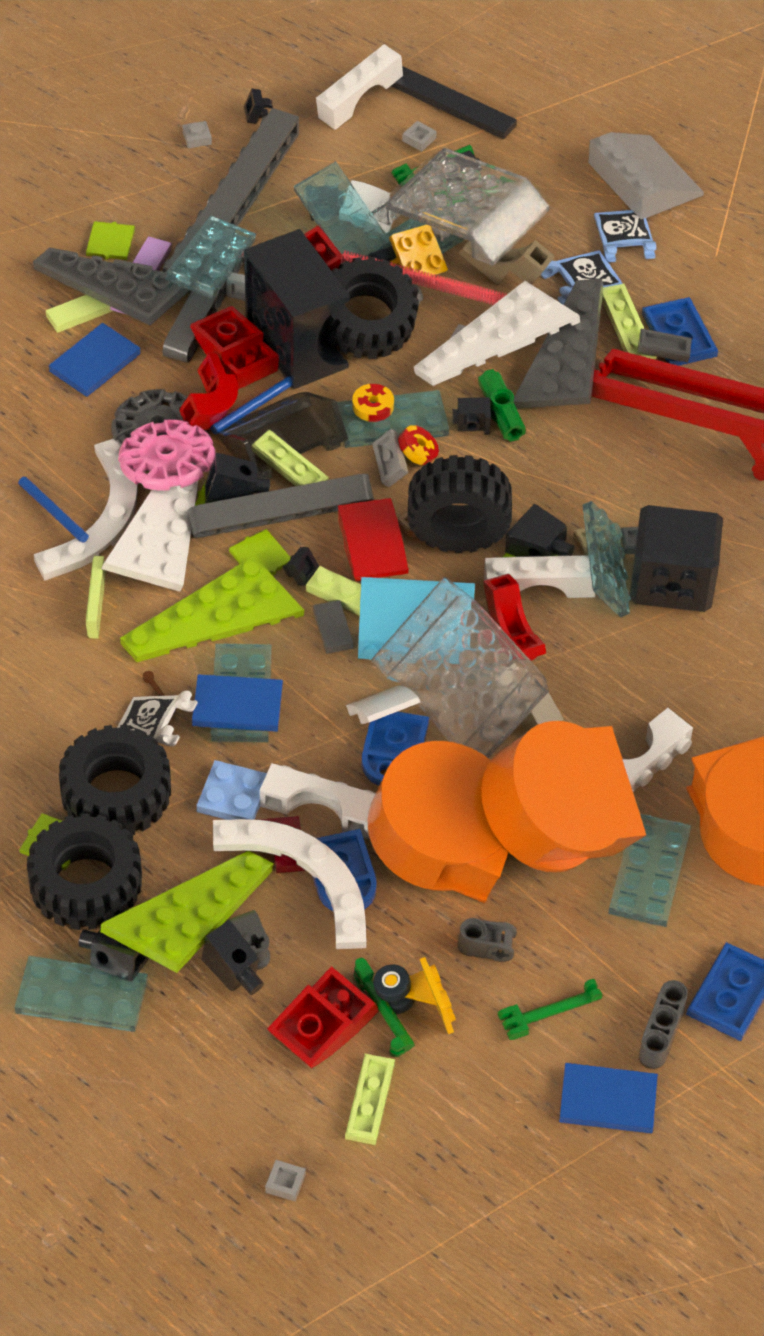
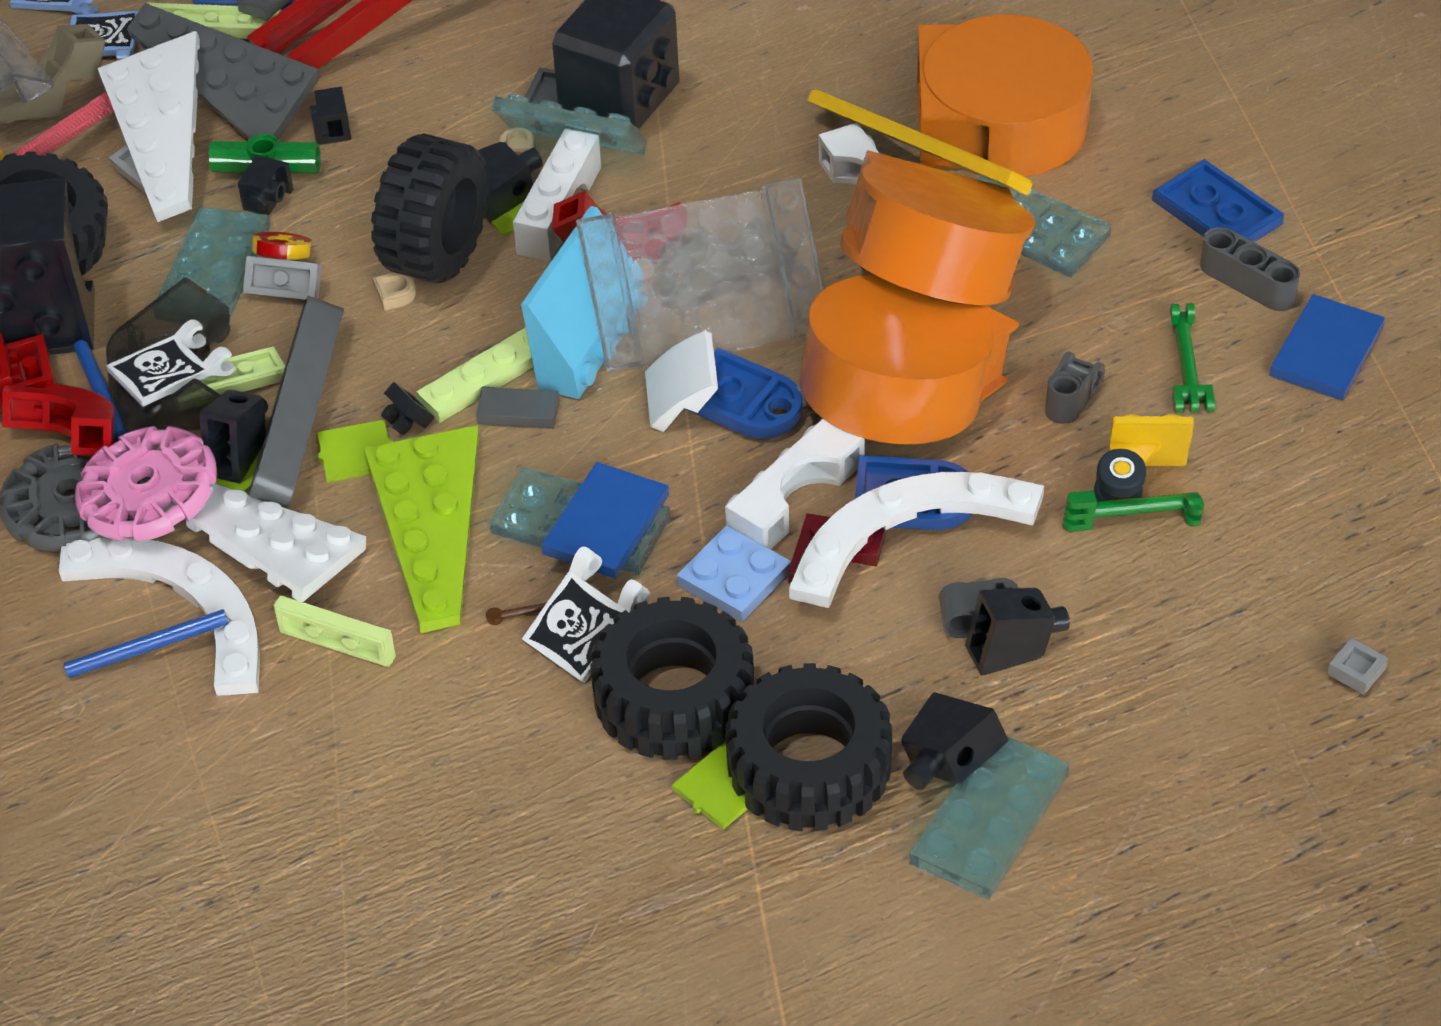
camera: 65 degrees left, 5 degrees down
(177, 921) = (932, 649): lime wing -> none
(273, 427) = (169, 365): none -> flag
(323, 1018) = (1129, 565): red slope -> none
(369, 411) = (189, 260): yellow piece -> none
(370, 1099) = (1258, 558): yellowish green tile -> none
(372, 539) = (408, 327): red slope -> none
(560, 425) = (330, 116): none -> black brick
(677, 768) = (921, 141): none -> yellow tile

